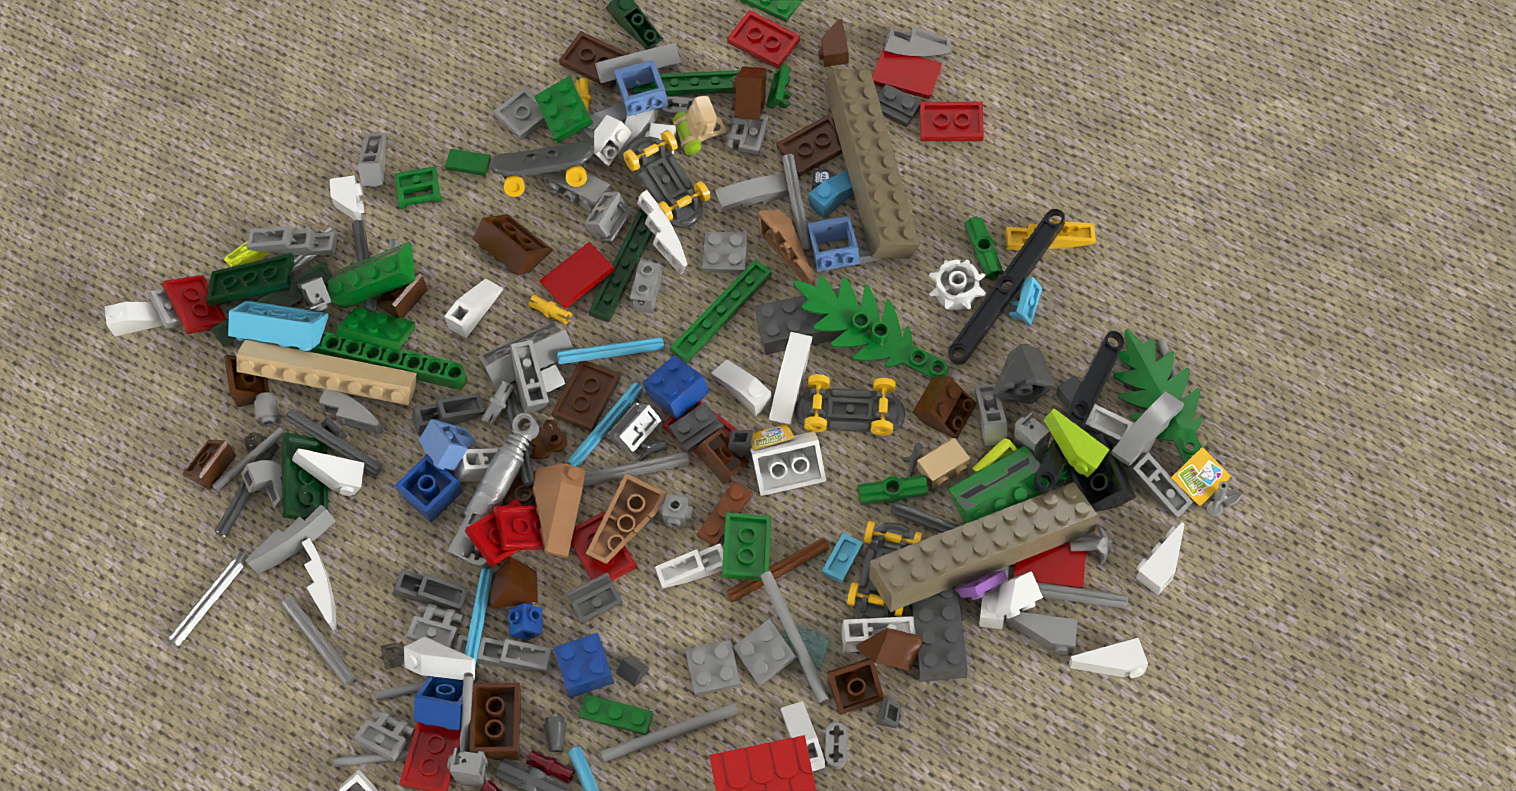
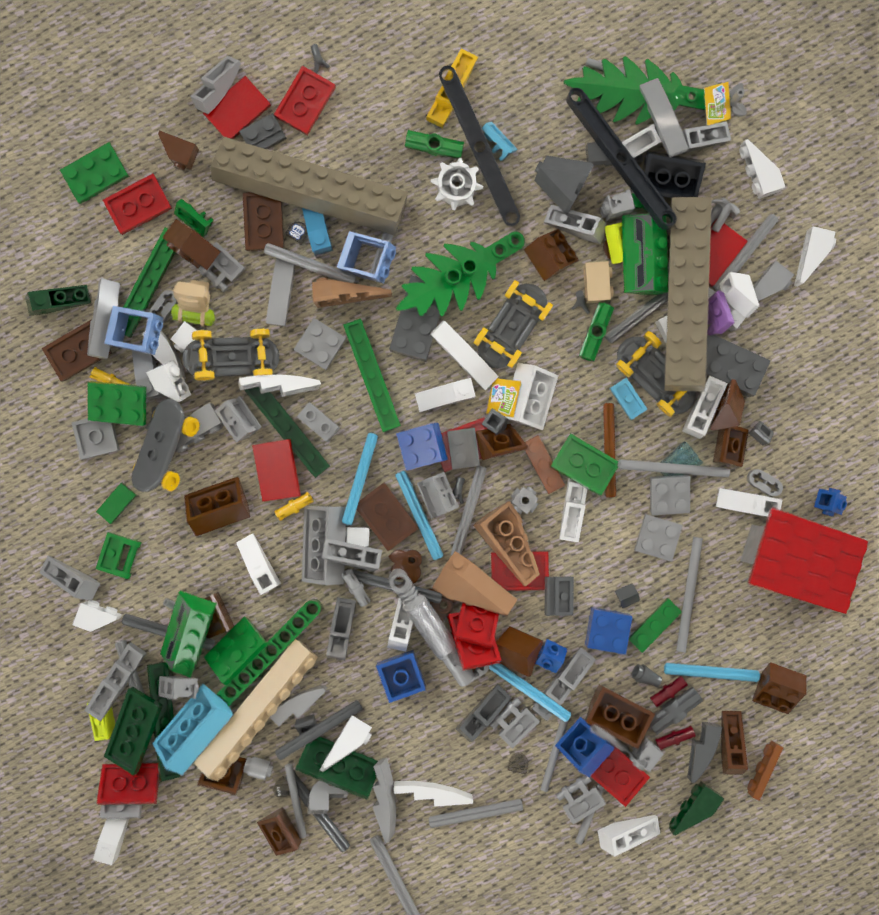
camera: 70 degrees left, 25 degrees up
(437, 660) = (548, 738): white slope -> none
(445, 443) = (377, 648): medium blue brick -> none
(999, 113) = (318, 60): none -> dark grey bar
(1078, 446) = (657, 178): lime slope -> none

